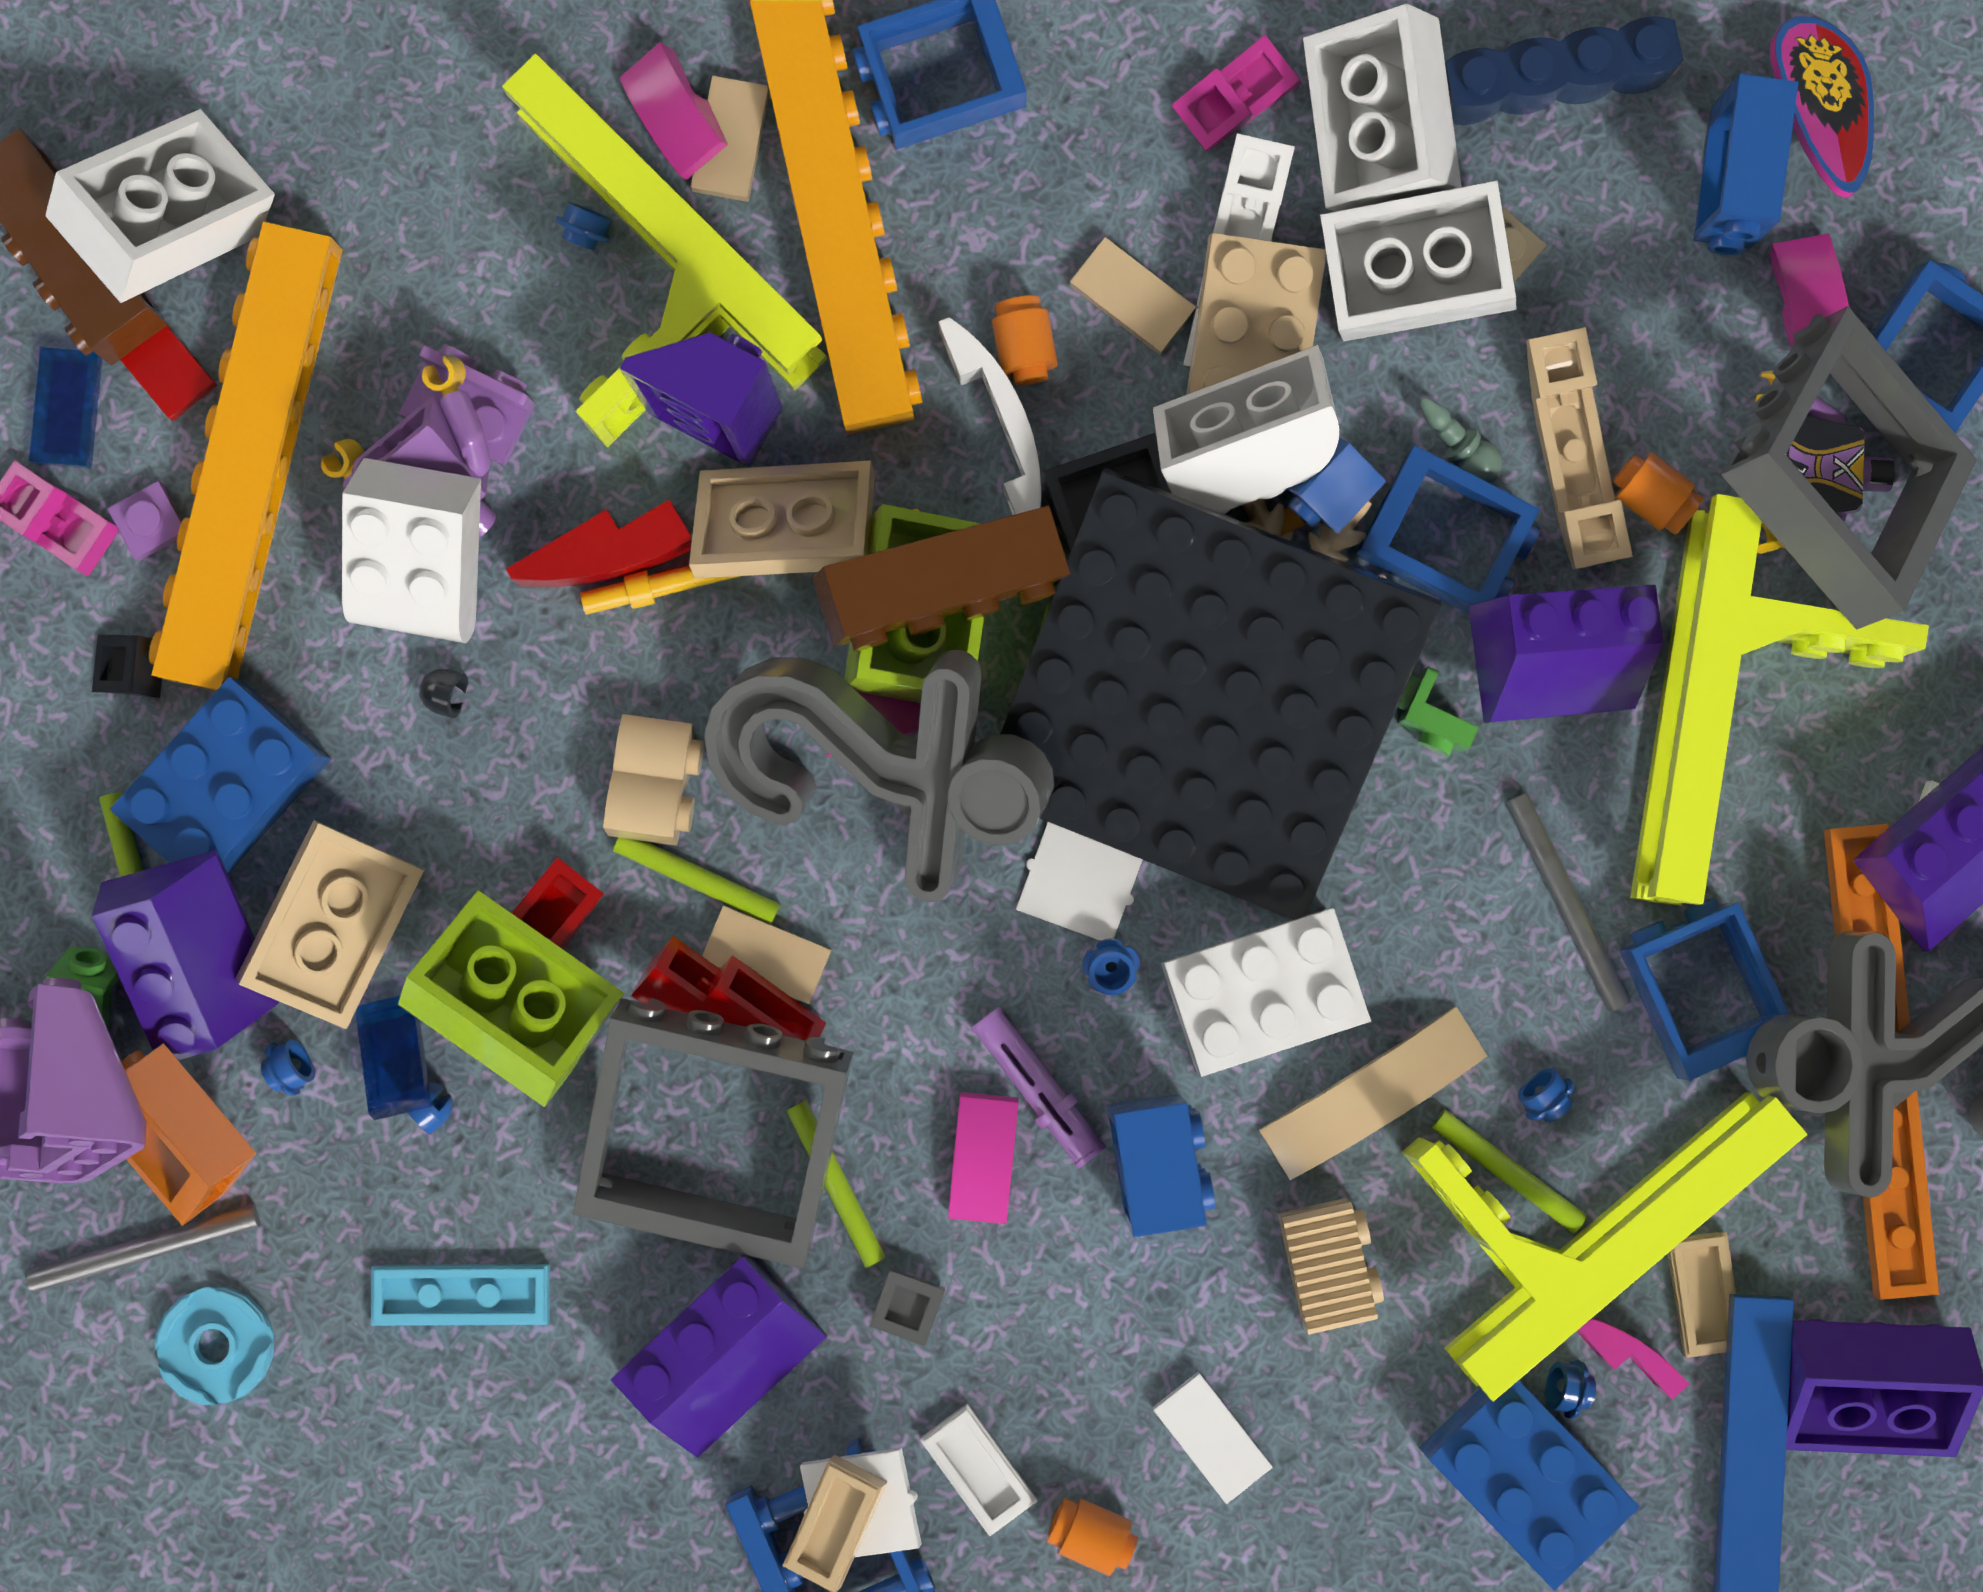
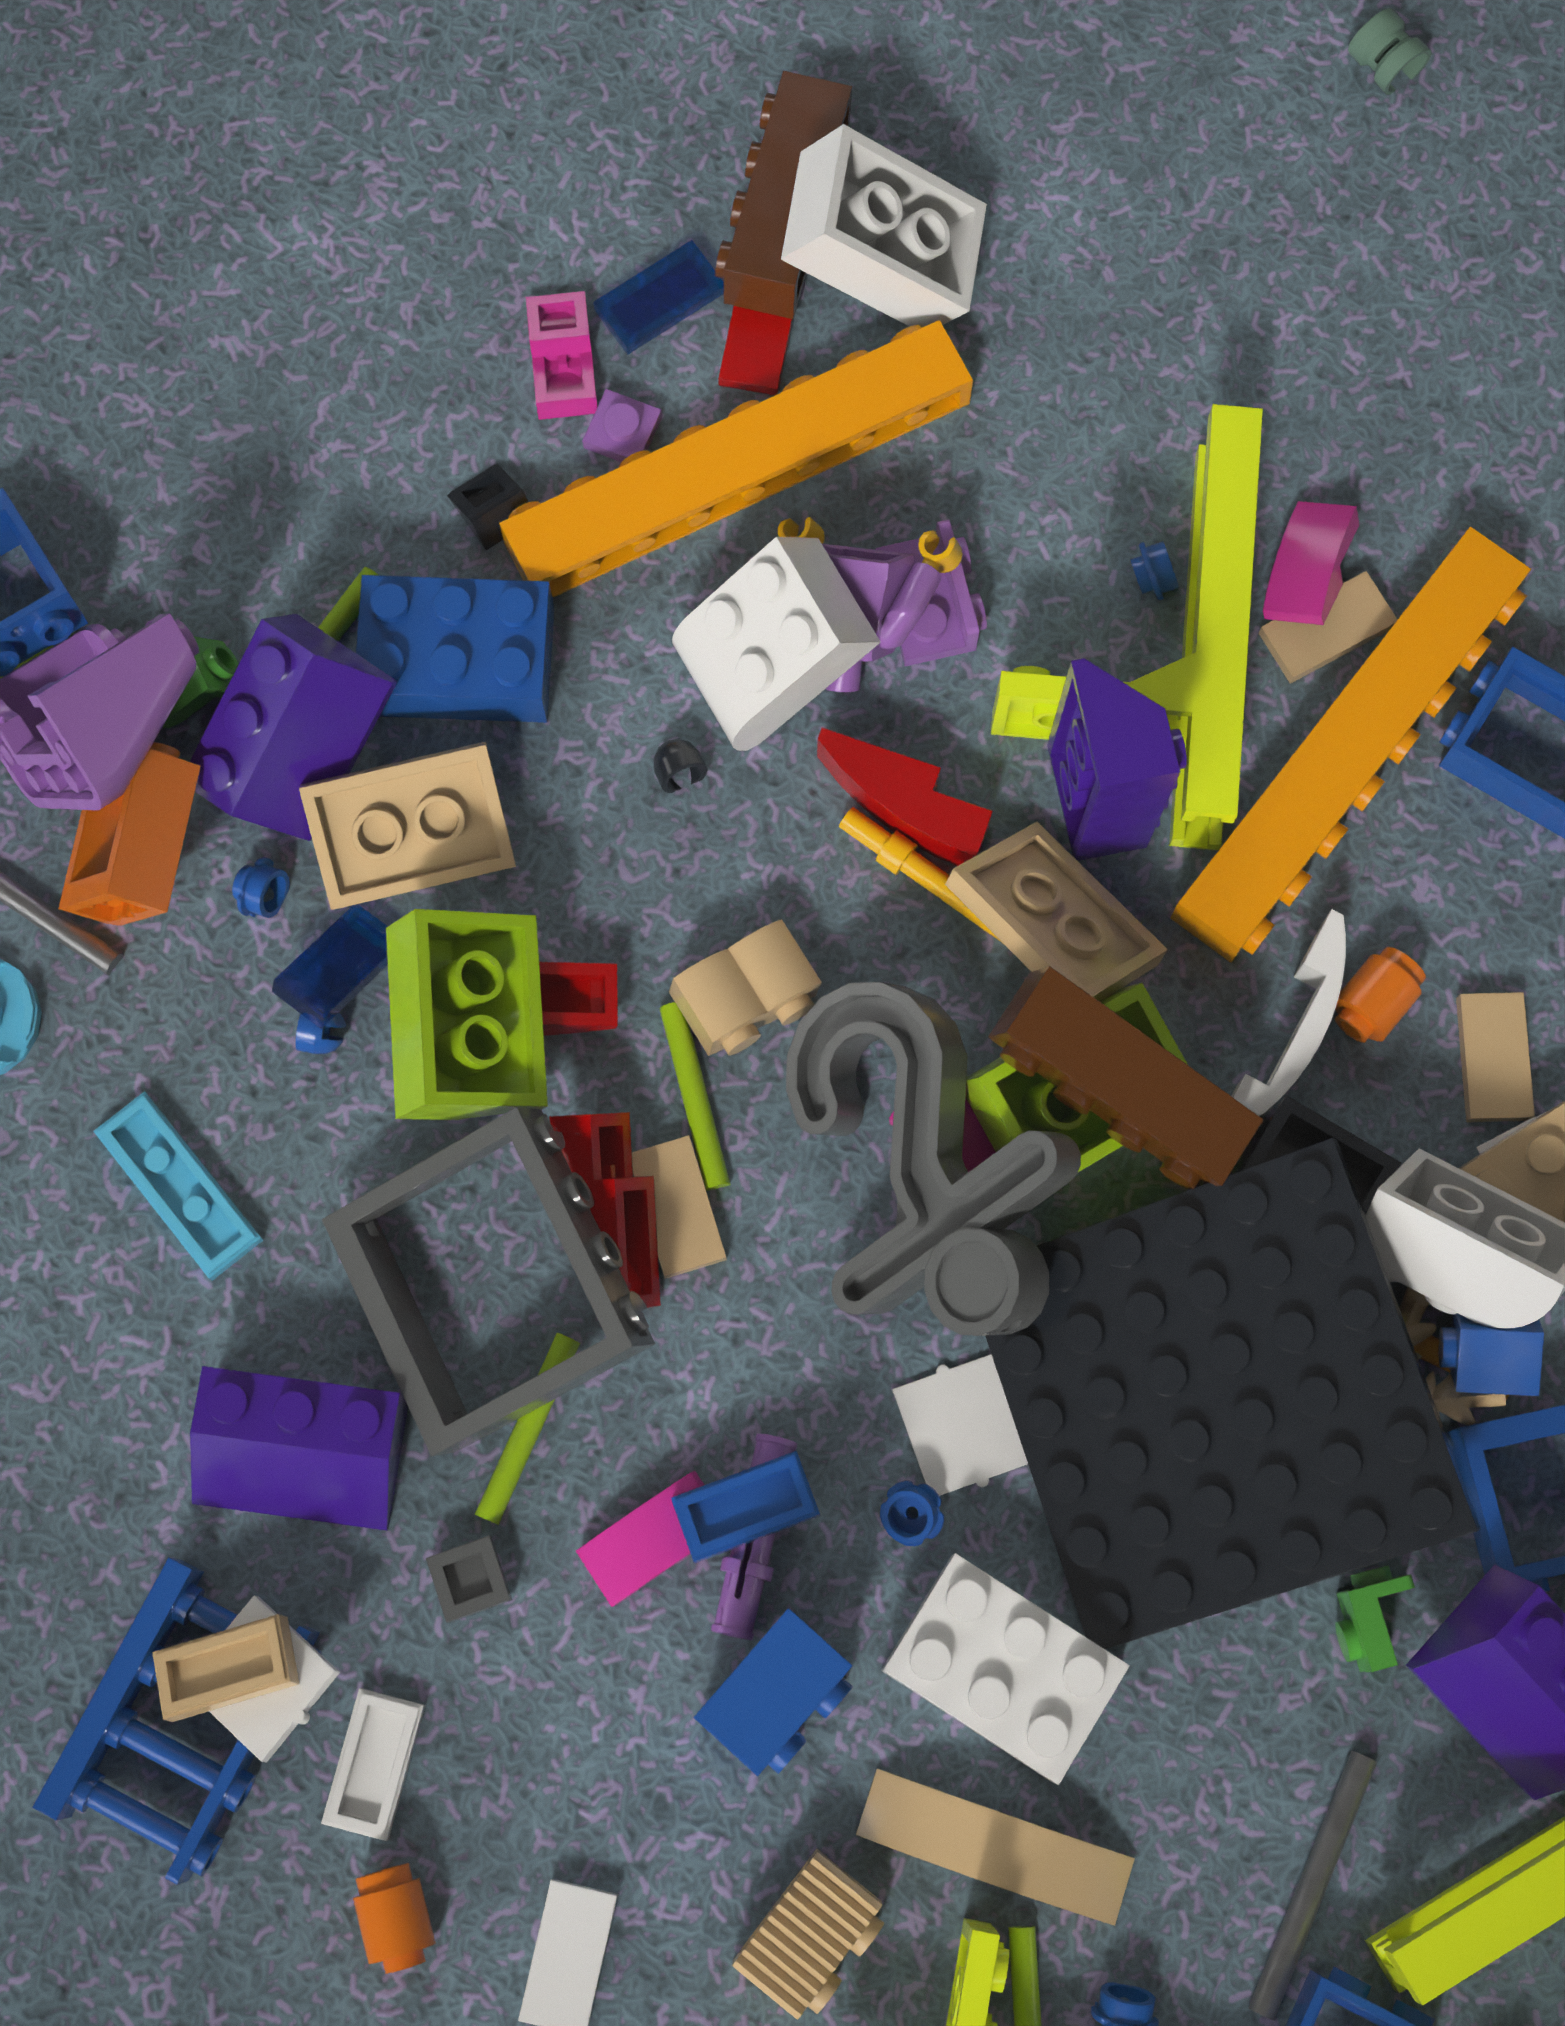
camera: 50 degrees right, 10 degrees down
(1015, 1079) = (745, 1506): none -> blue tile

